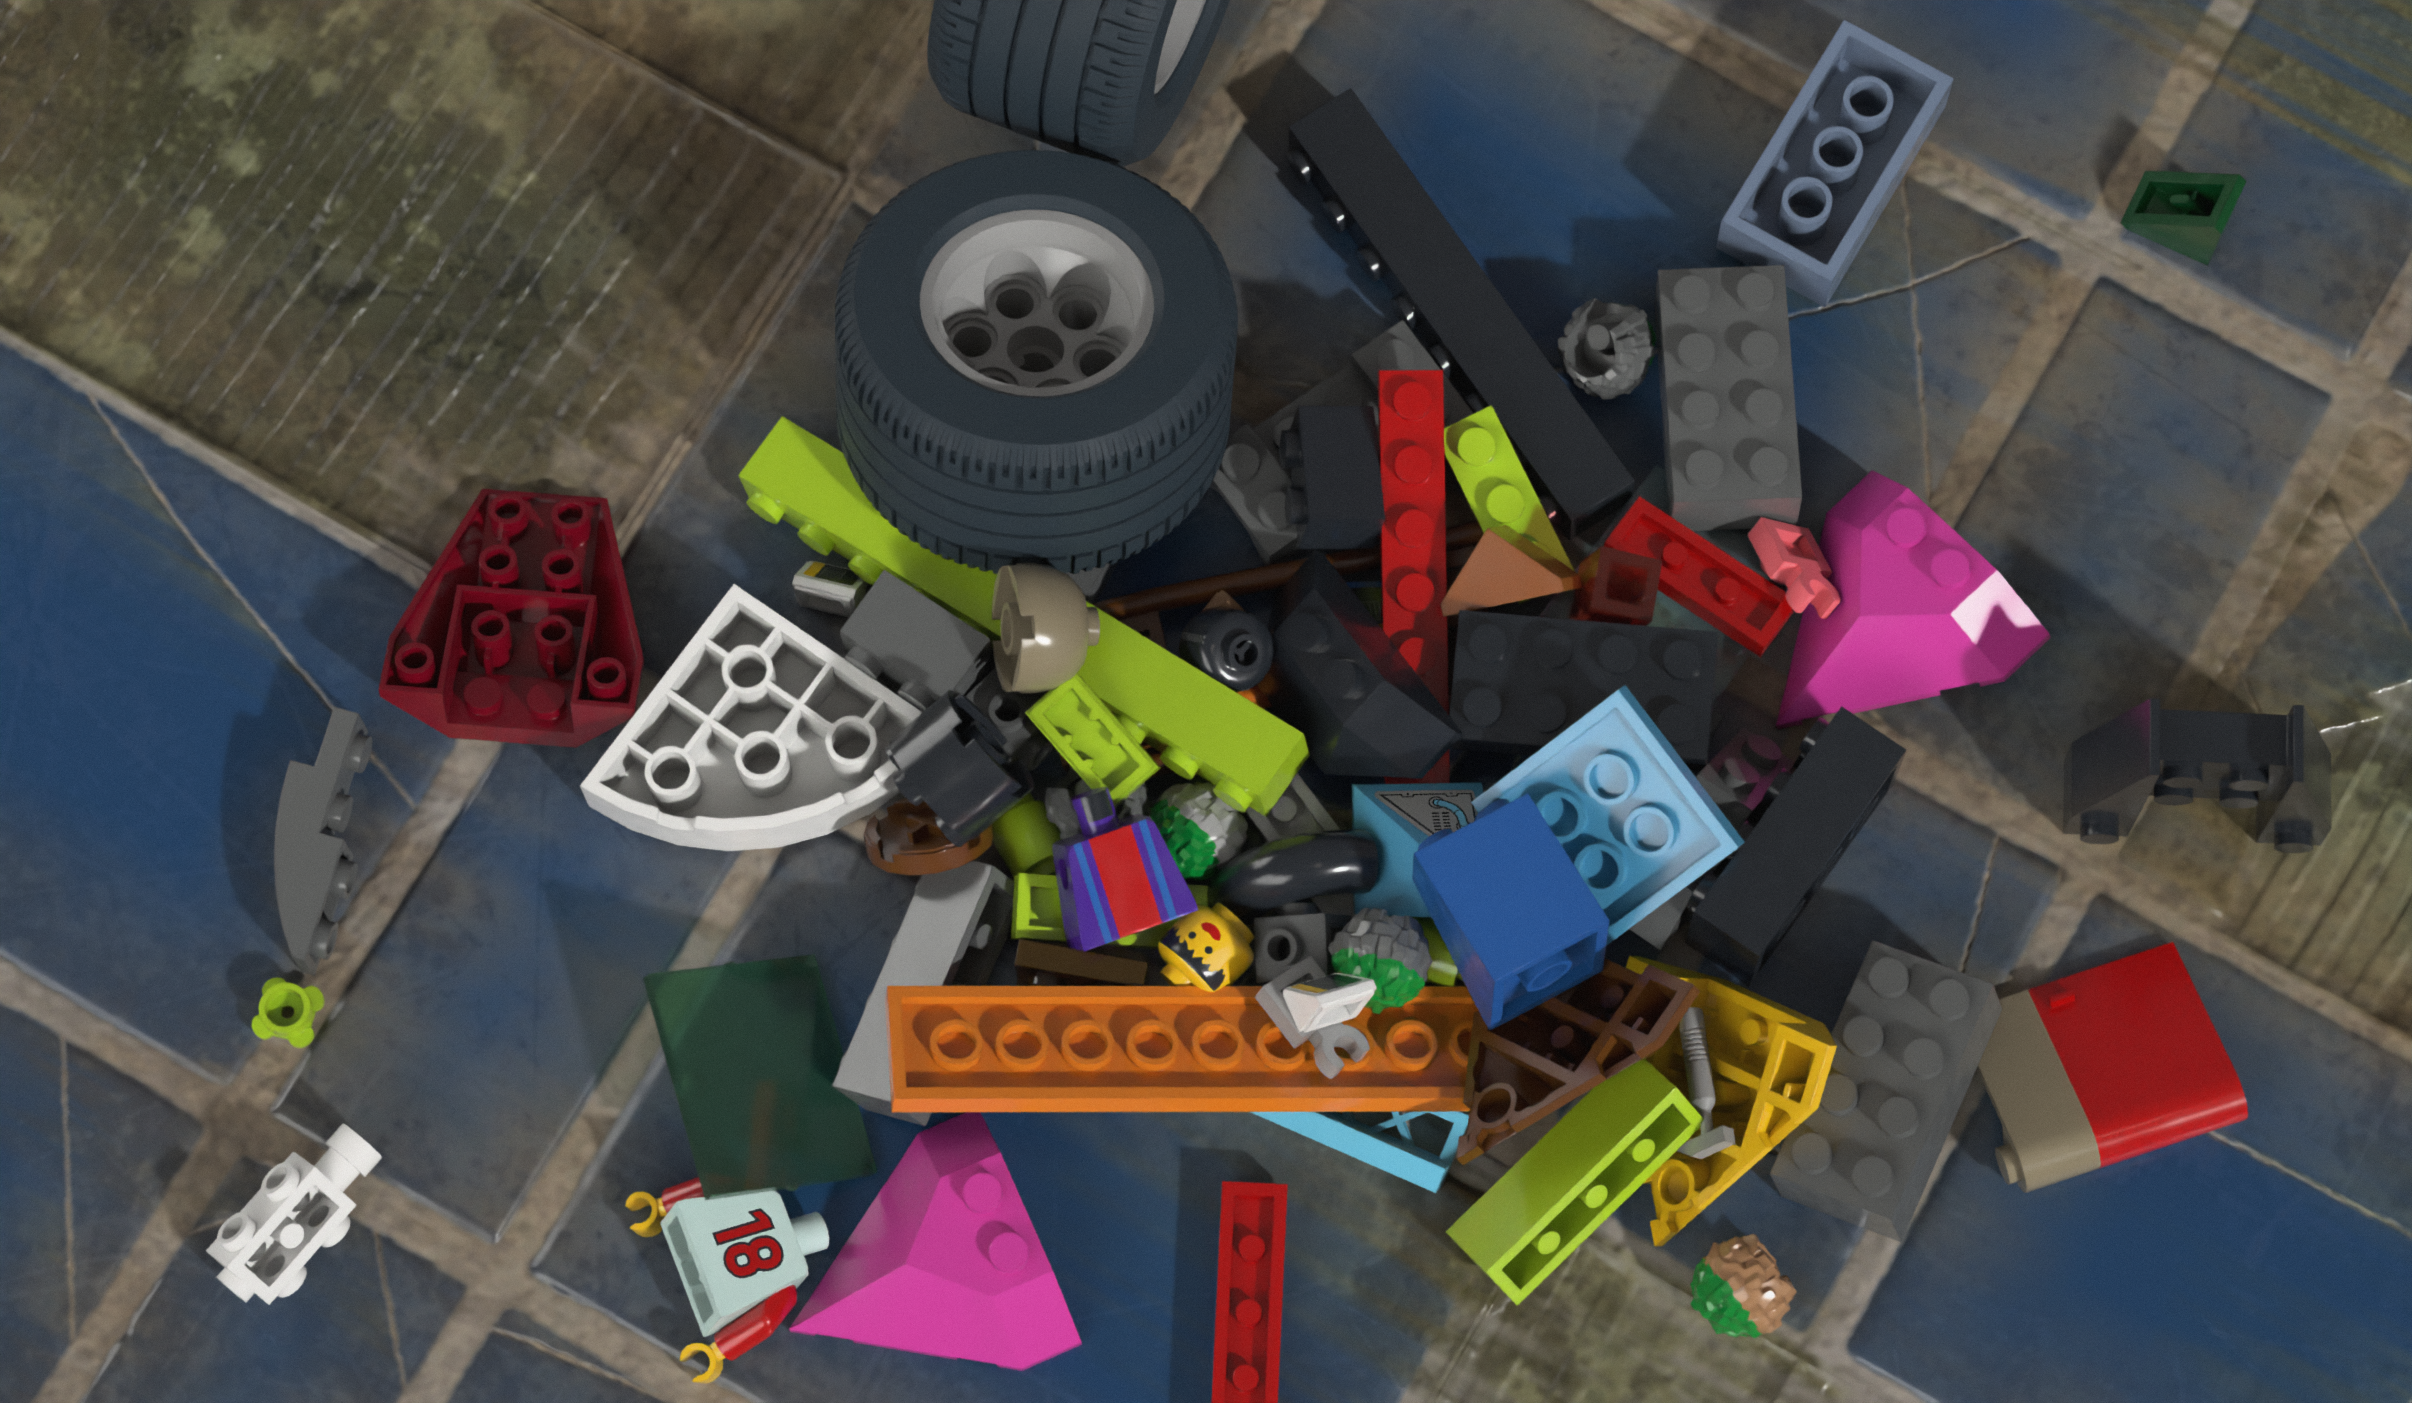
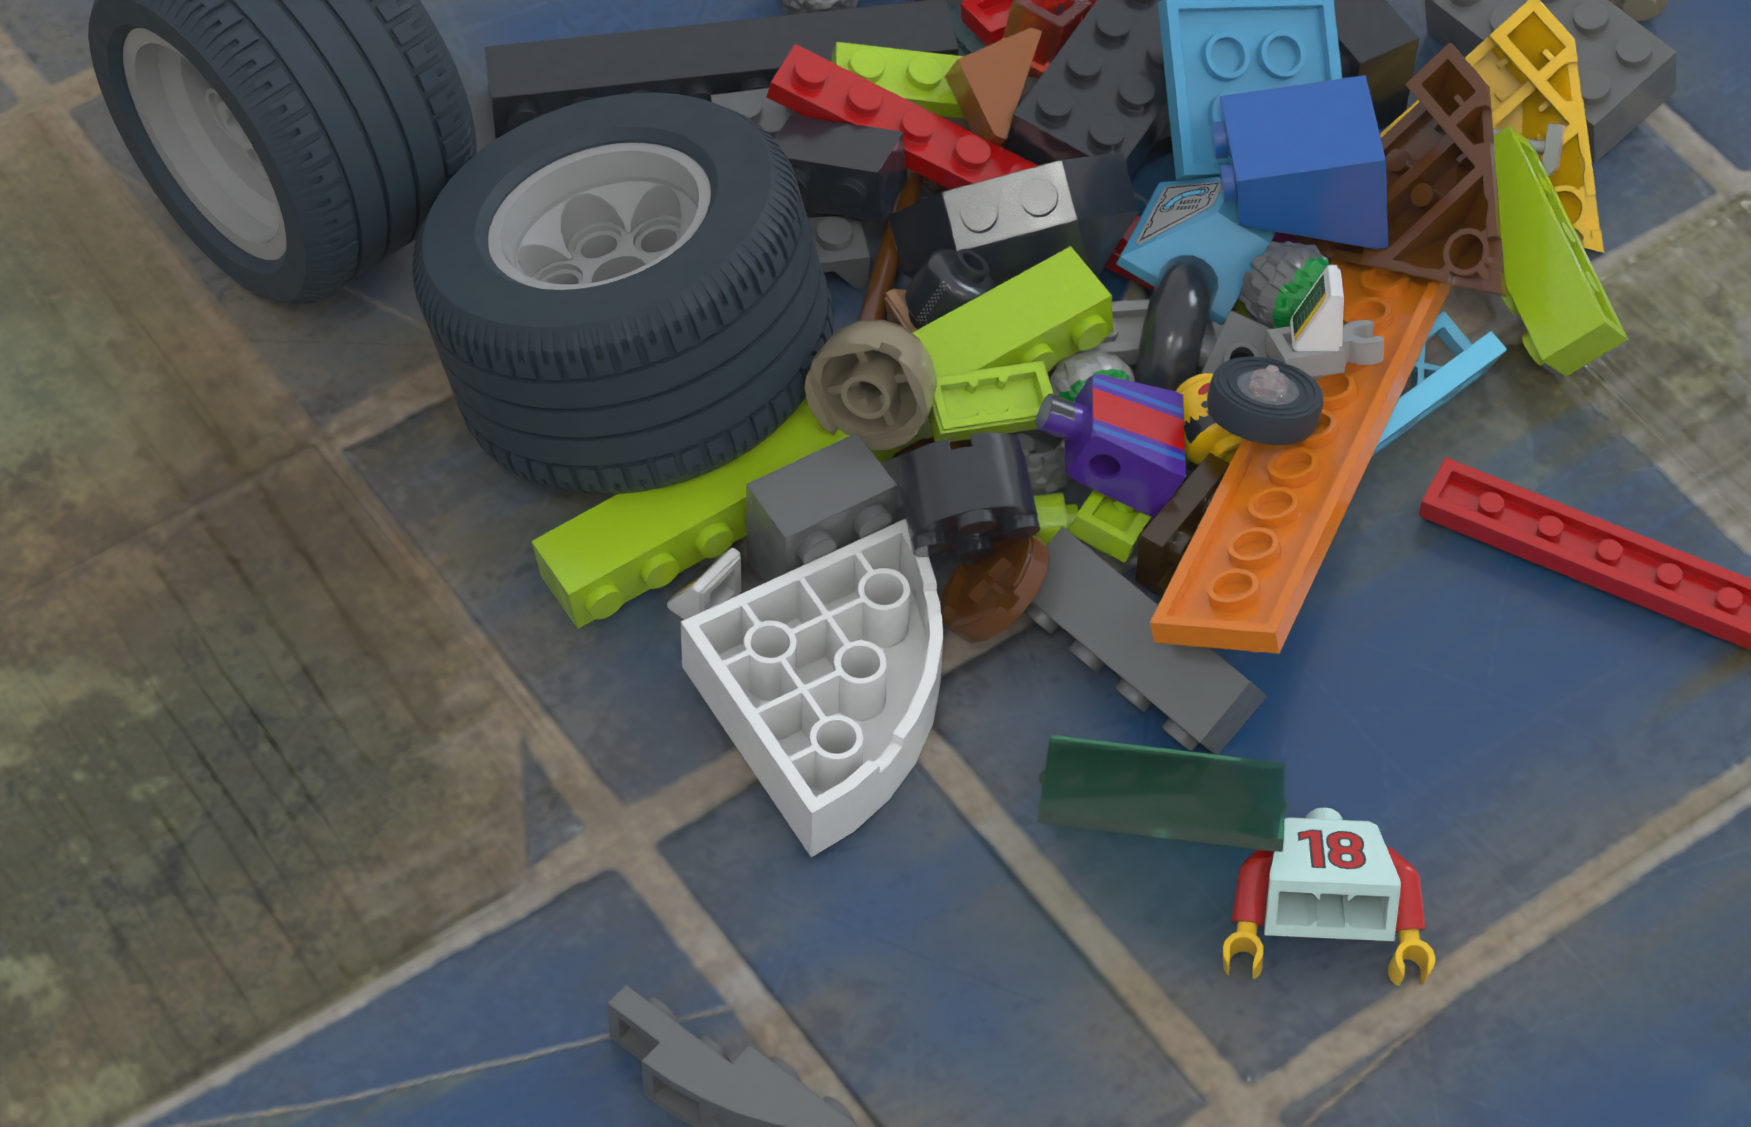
camera: 70 degrees left, 20 degrees down
(521, 627) = (614, 826): dark red wedge -> none
(946, 1262) = (1394, 725): dark pink wedge -> none
(1204, 987) = (1264, 400): none -> black wheel
(1741, 1288) = (1676, 192): medium nougat piece -> none

